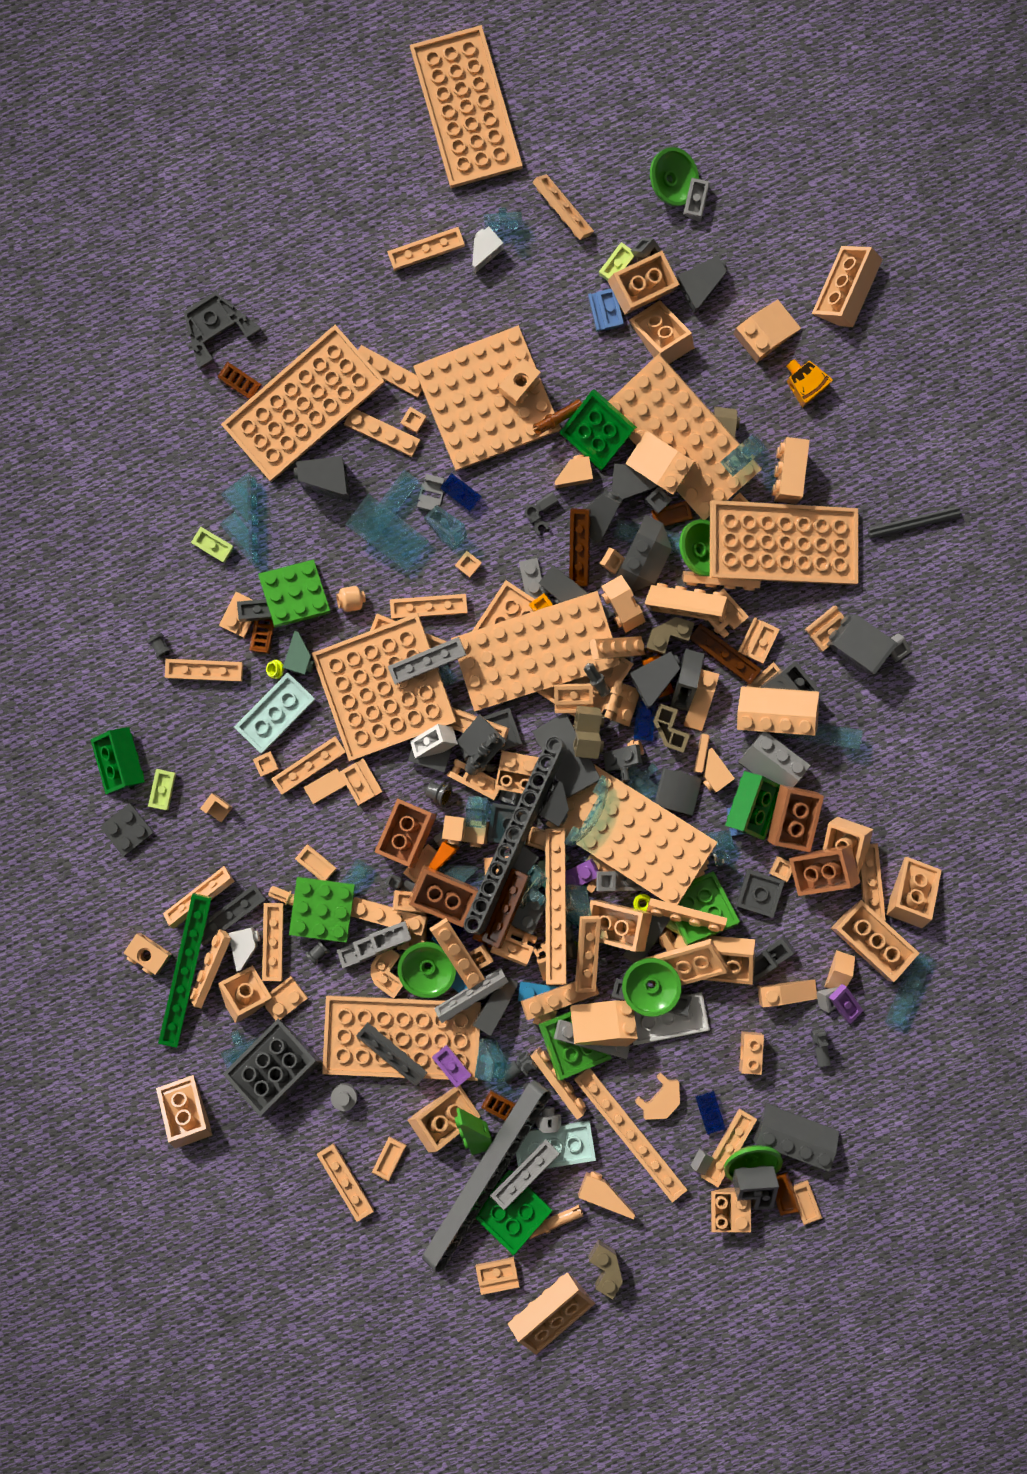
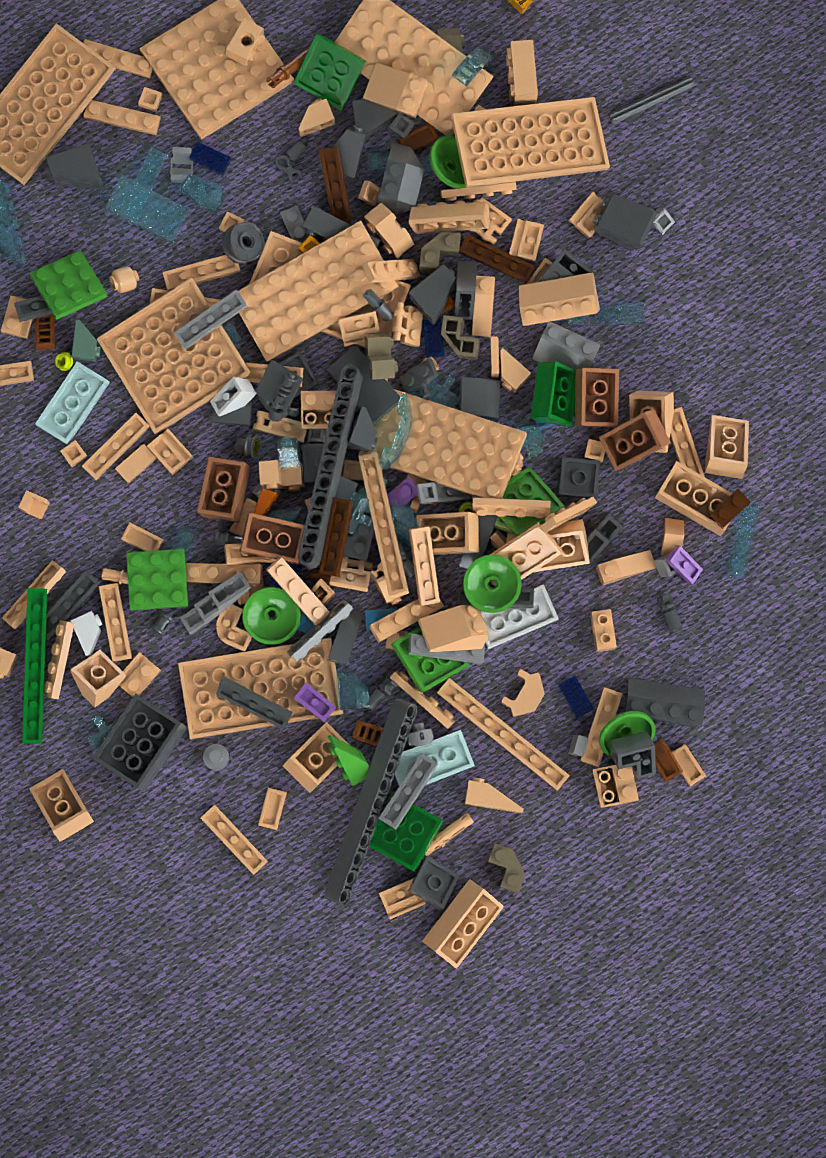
camera: 20 degrees left, 5 degrees down
(465, 587) = (252, 239): none -> dark grey wheel
(531, 1268) = (433, 883): none -> dark grey plate
(738, 934) = (567, 513): none -> light nougat plate
(905, 960) = (730, 508): none -> reddish brown plate

